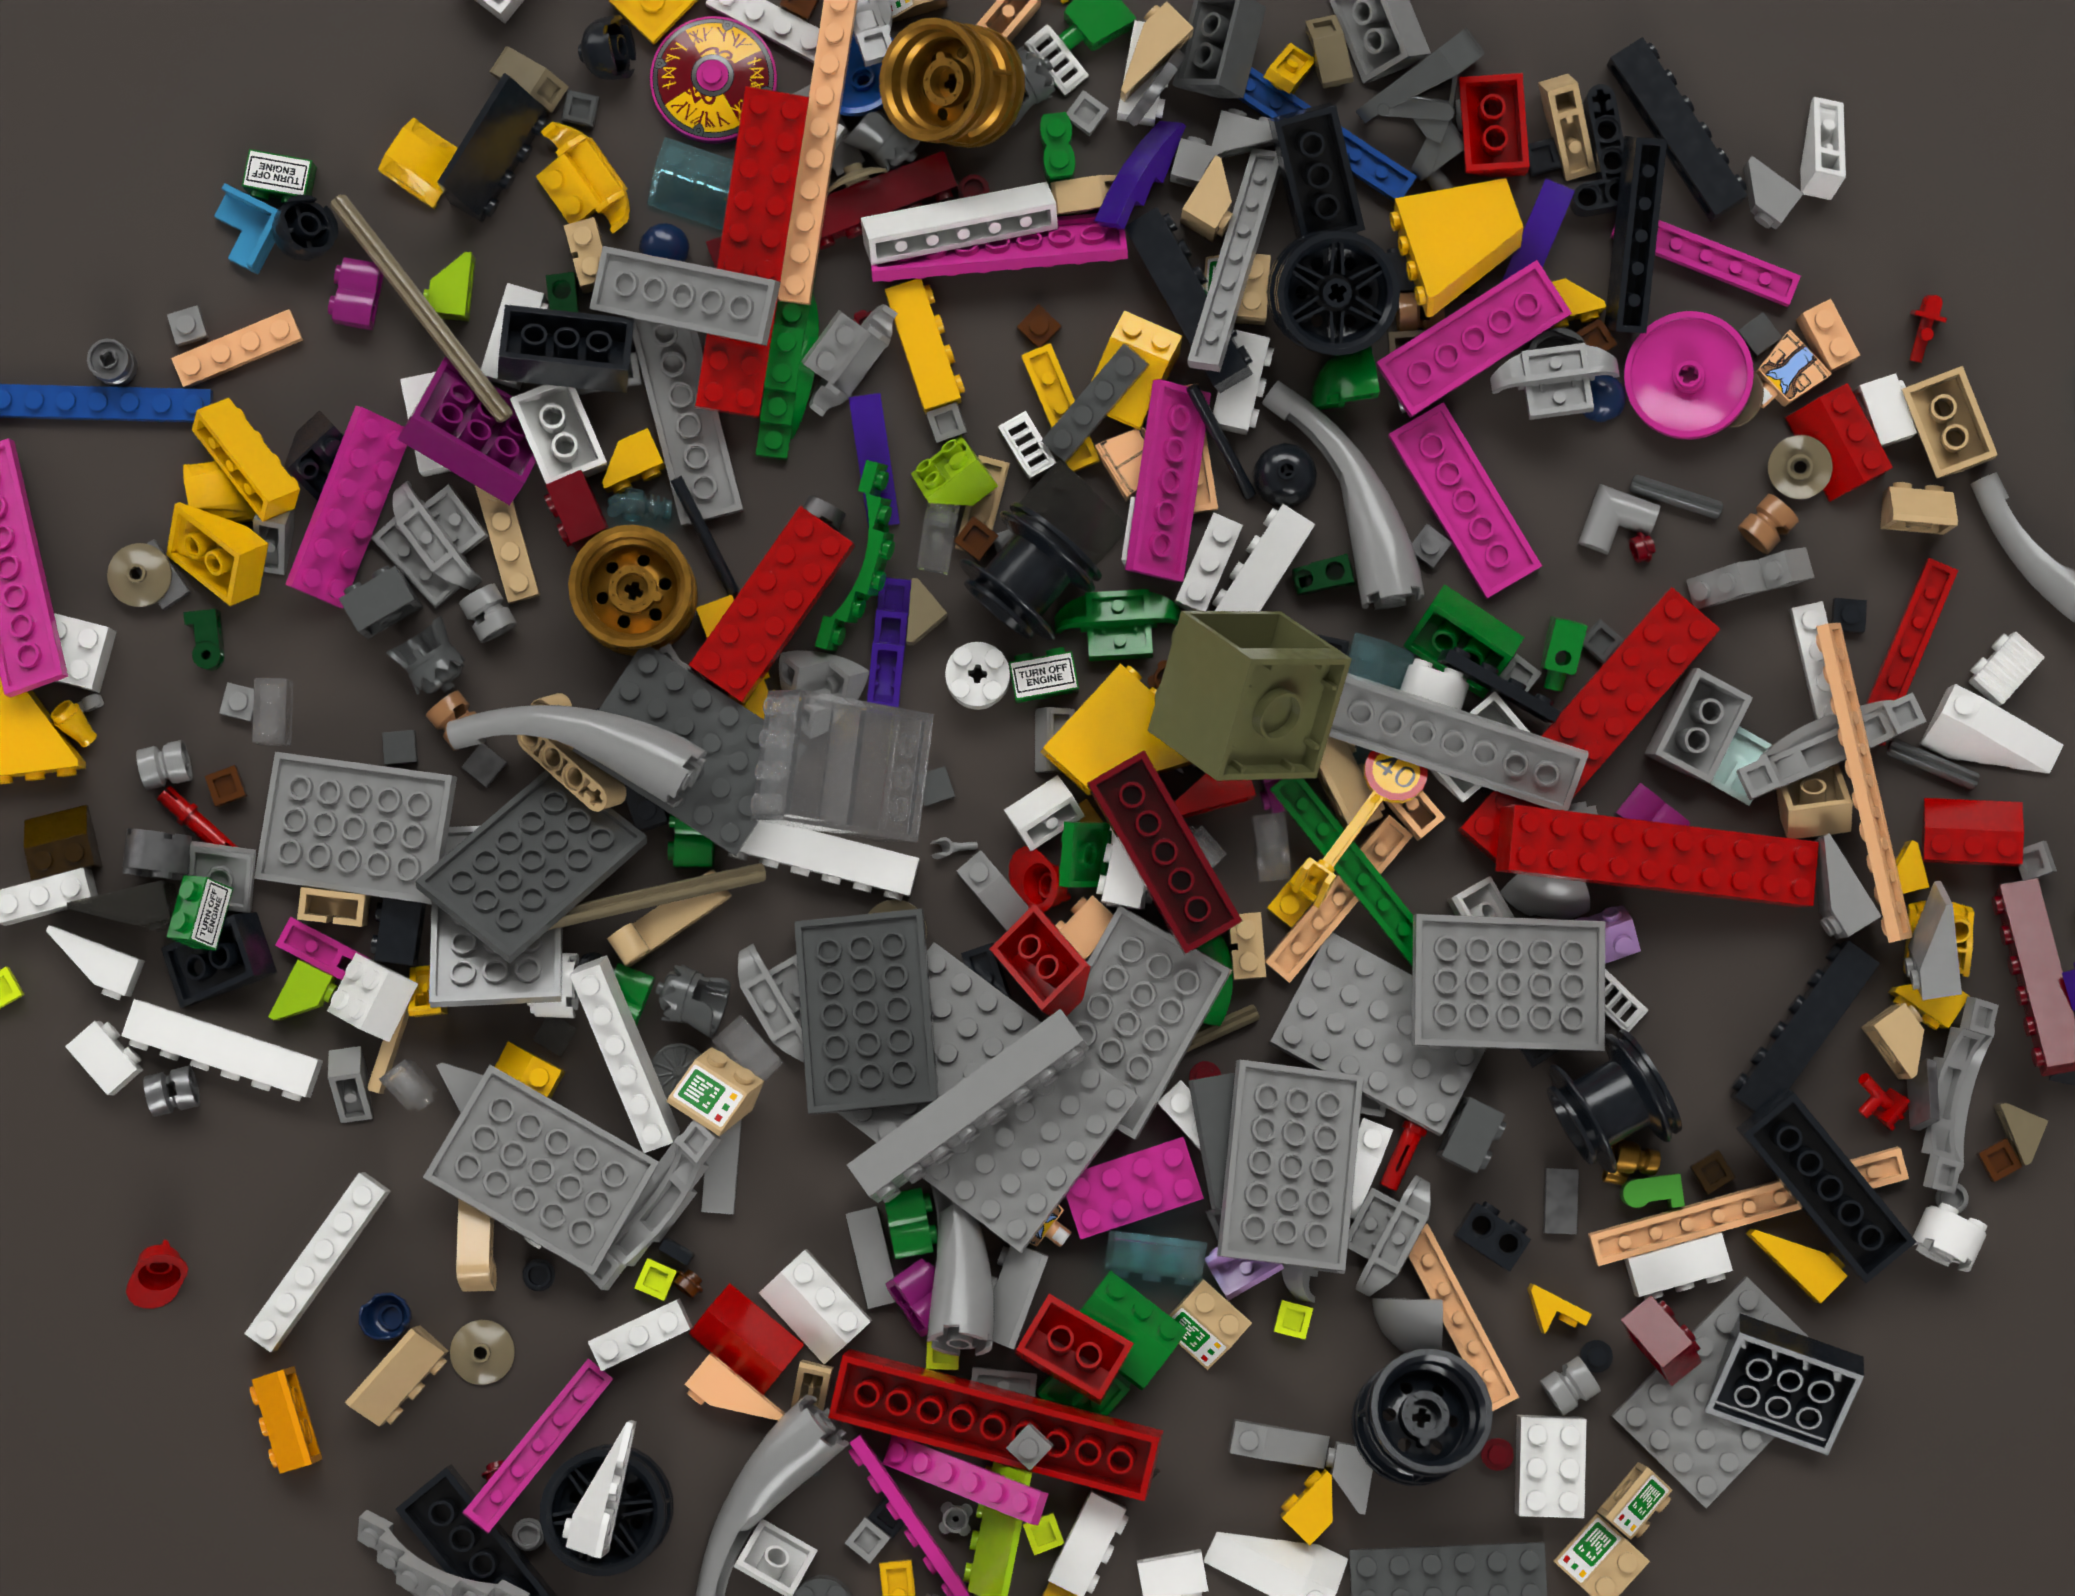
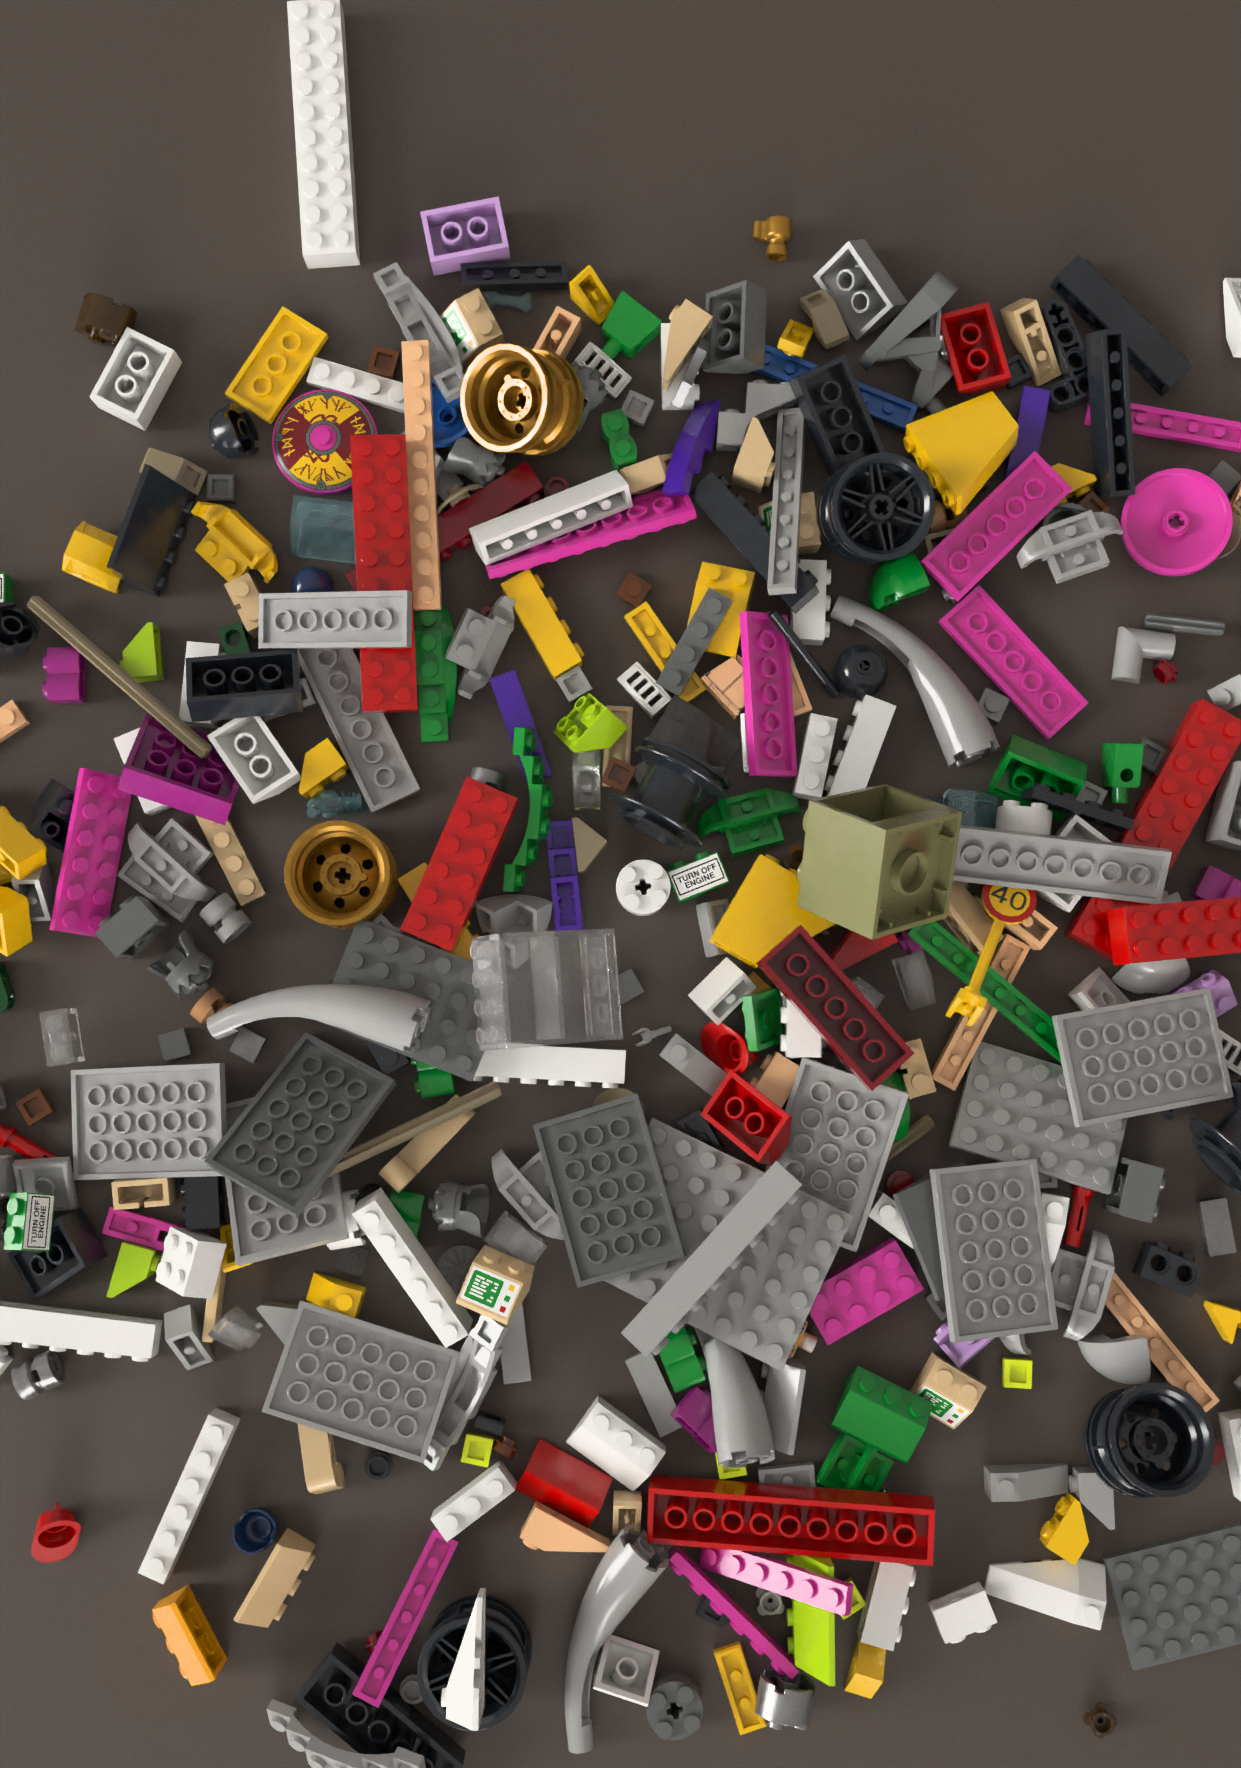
camera: 10 degrees left, 0 degrees up
(238, 702) = (30, 1034): light grey plate -> none
(499, 1350) = (344, 1526): dark tan dish -> none
(577, 507) = (281, 816): dark red brick -> none
(579, 776) = (329, 1041): tan beam -> none
(704, 535) = (393, 817): black bar -> none
(867, 1539) = (700, 1634): light grey plate -> none
(1029, 1446) = (825, 1538): light grey plate -> none
(1074, 1349) = (843, 1442): red slope -> none
(1155, 1256) = (892, 1344): clear light blue slope -> none
(1290, 905) = (937, 1024): yellow slope -> none
(1323, 575) = (910, 747): dark green leg -> none
(1608, 398) = (1117, 556): dark blue hair -> none
(1768, 194) = (1209, 362): light grey slope -> none

